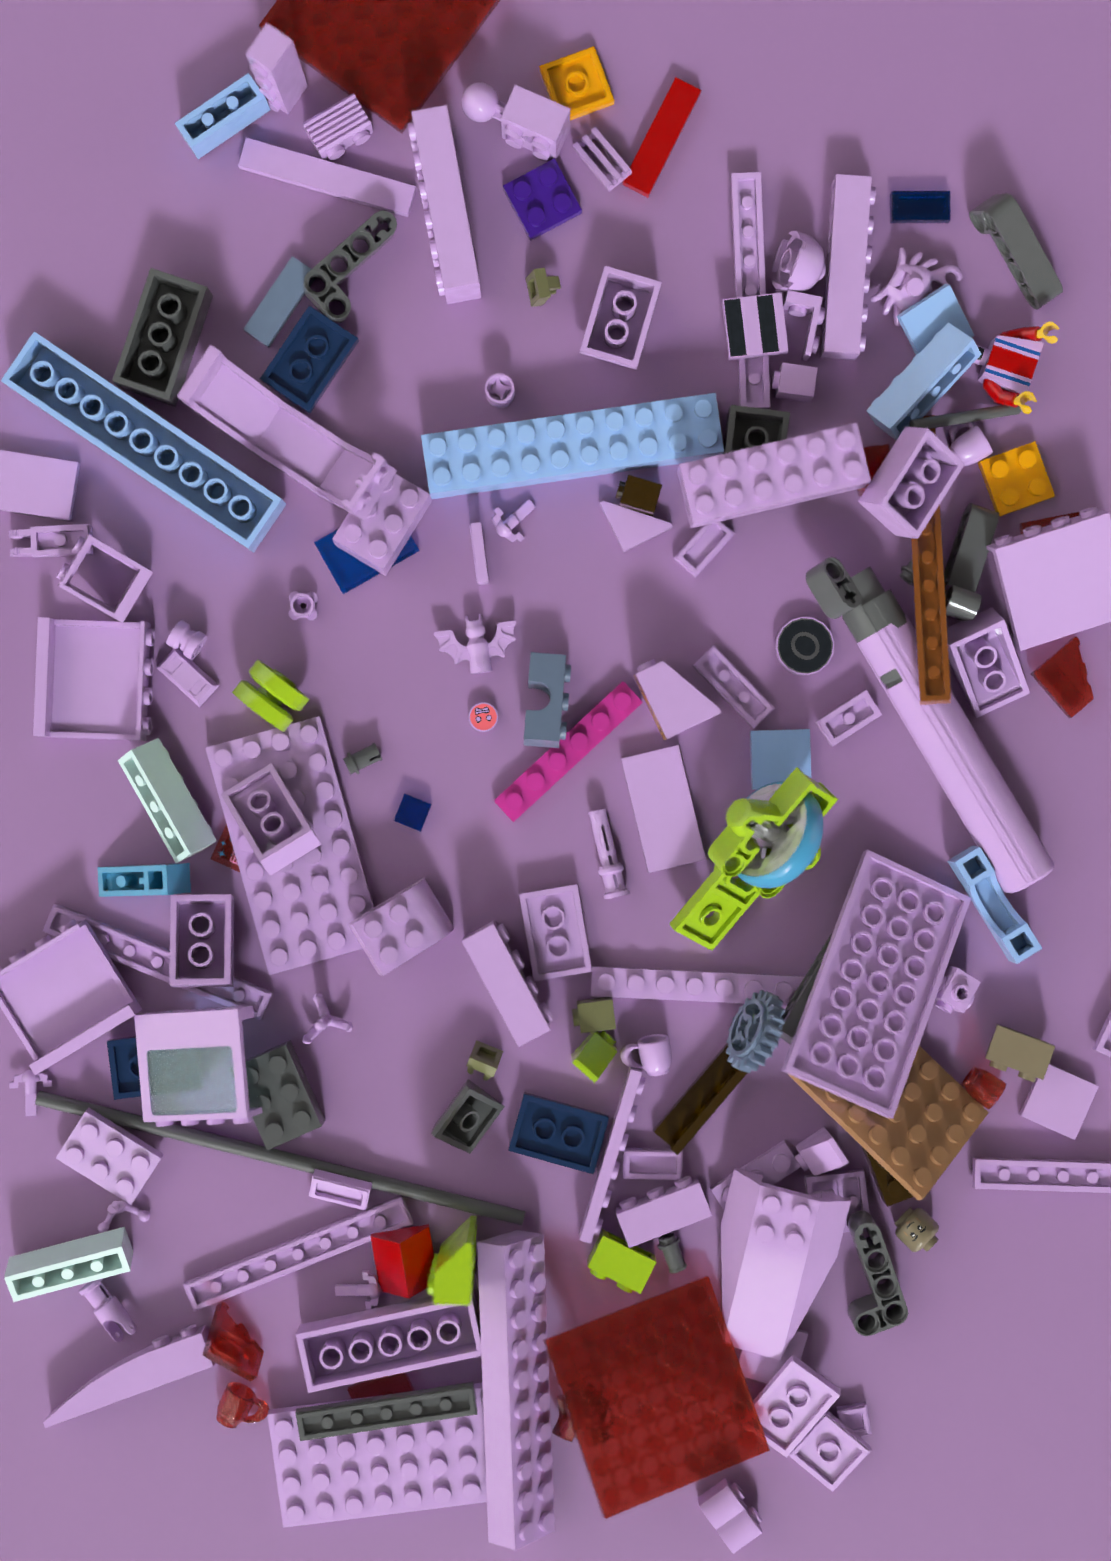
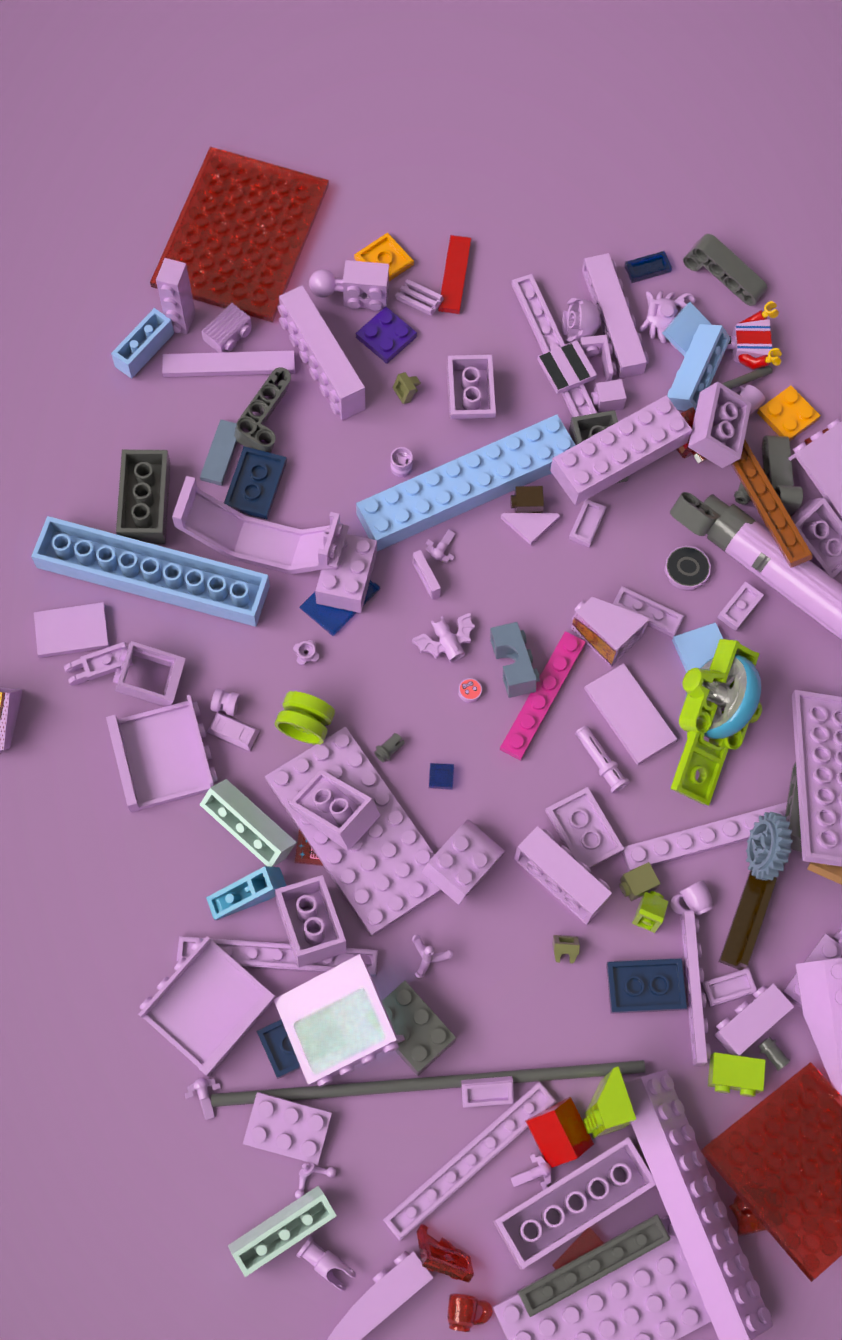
camera: 25 degrees left, 20 degrees down
(467, 1117) = (569, 997): dark grey slope -> none

